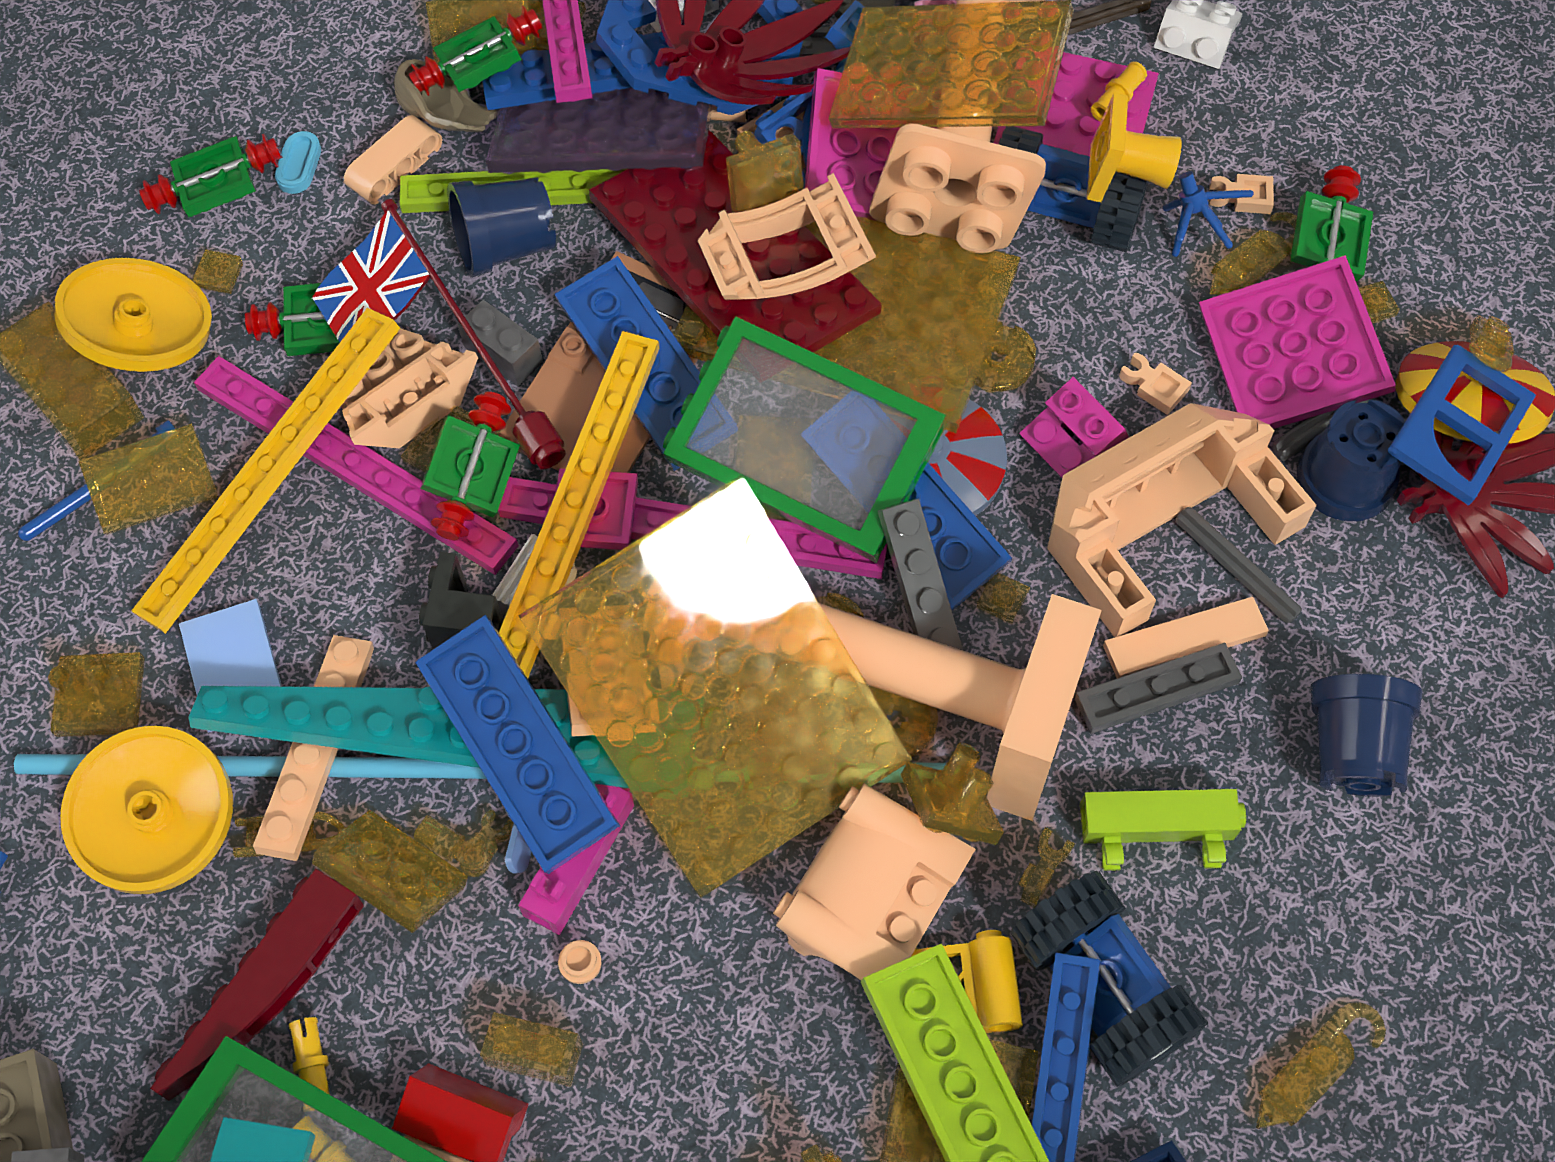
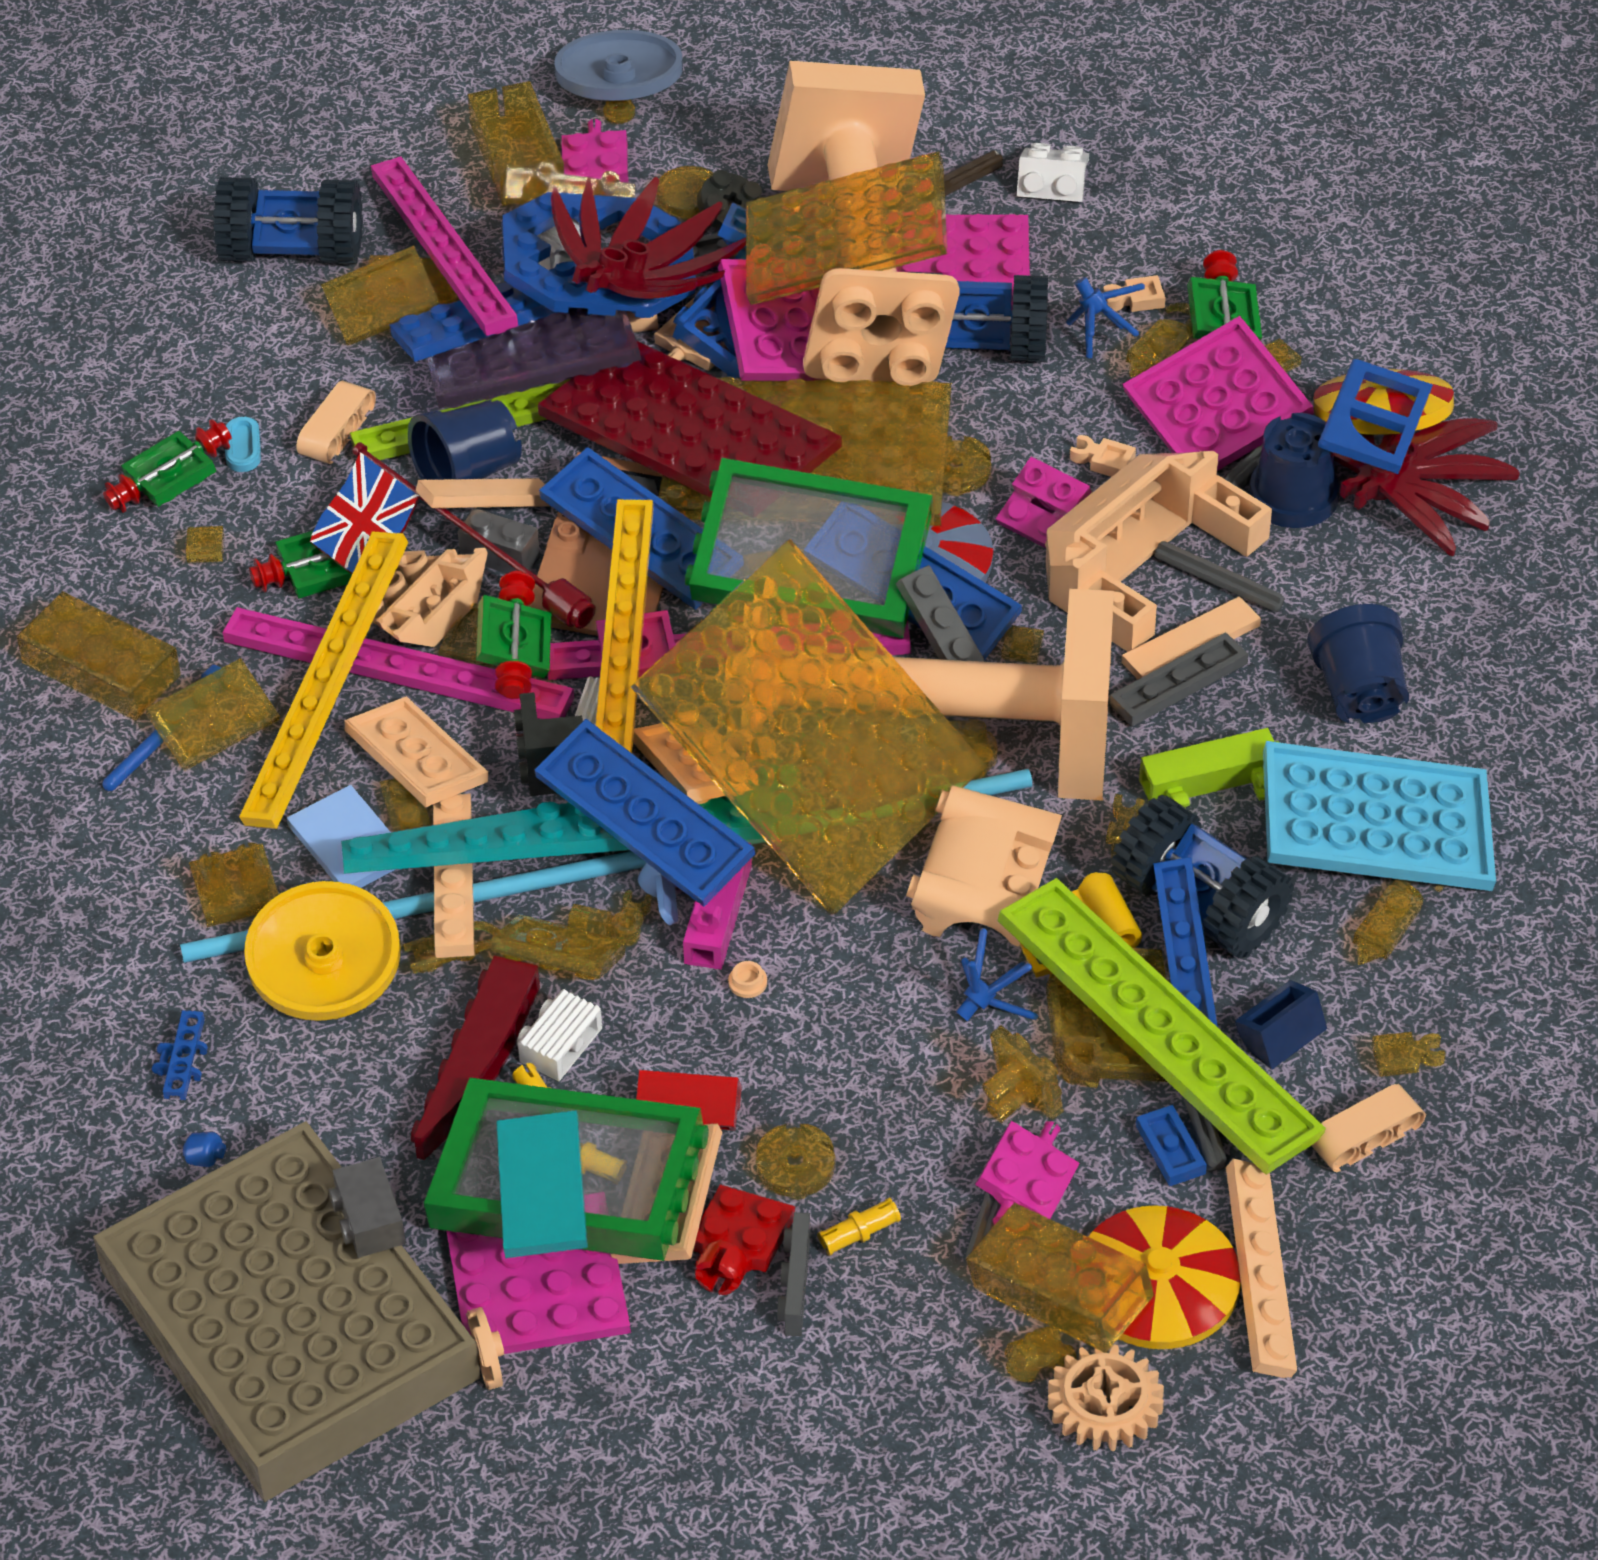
camera: 15 degrees left, 15 degrees down
(132, 314) = (146, 587): yellow dish -> none
(303, 640) = (402, 807): none -> clear yellow plate
(333, 578) = (416, 751): none -> light nougat tile
(355, 982) = (559, 1034): none -> white brick
(444, 107) = (361, 363): dark tan hair -> none
(477, 52) = (390, 313): green plate -> none
(496, 282) = (481, 493): none -> light nougat tile
(531, 1049) = (732, 1043): clear yellow brick -> none
(763, 171) = (704, 353): clear yellow plate -> none
(823, 204) = (771, 364): light nougat wedge -> none
(824, 1056) = (981, 994): none -> blue plant
(954, 797) = (1032, 779): clear yellow plate -> none
(1124, 84) = (997, 233): yellow pin -> none
(1129, 152) = (1025, 265): yellow plant -> none
(1331, 941) = (1378, 816): none -> medium azure plate
(1492, 342) = (1386, 356): clear yellow plate -> none

